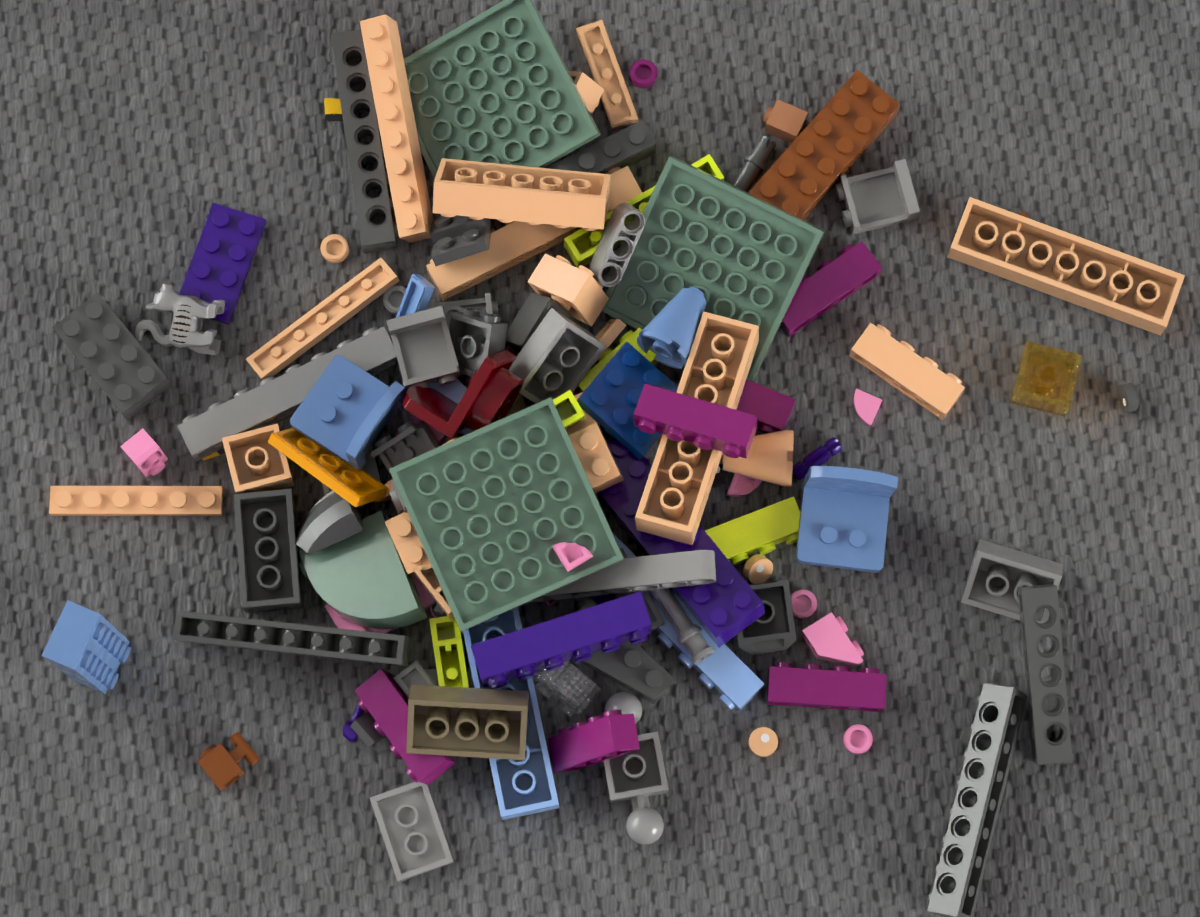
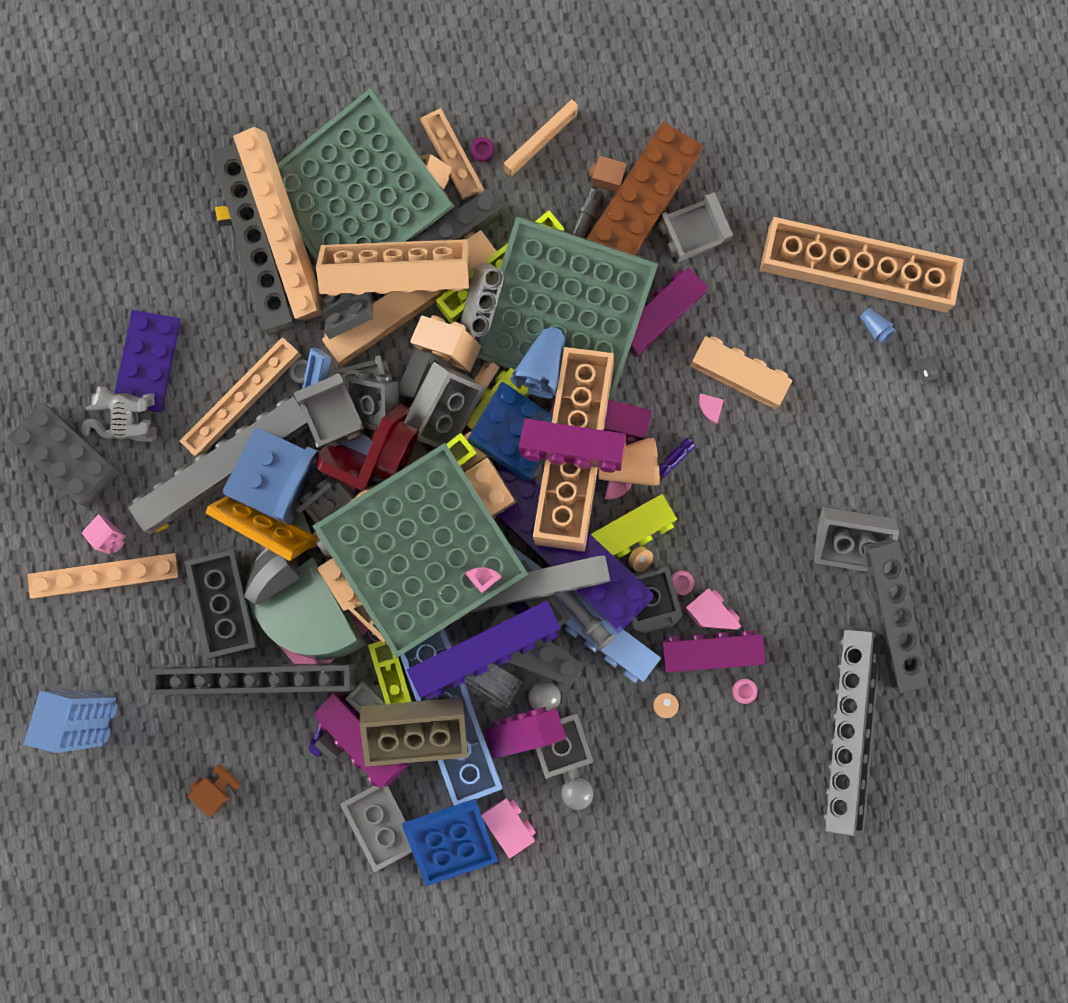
camera: 15 degrees left, 5 degrees up
(255, 462) = (198, 531): light nougat brick -> none
(334, 248) = (242, 335): light nougat tile -> none
(490, 858) = (450, 842): none -> blue plate
(560, 853) = (508, 826): none -> bright pink brick
(713, 70) = (540, 138): none -> light nougat tile
(844, 518) = (708, 507): medium blue piece -> none
(1045, 378) = (858, 363): clear yellow brick -> none
(1076, 338) = (878, 326): none -> medium blue cone

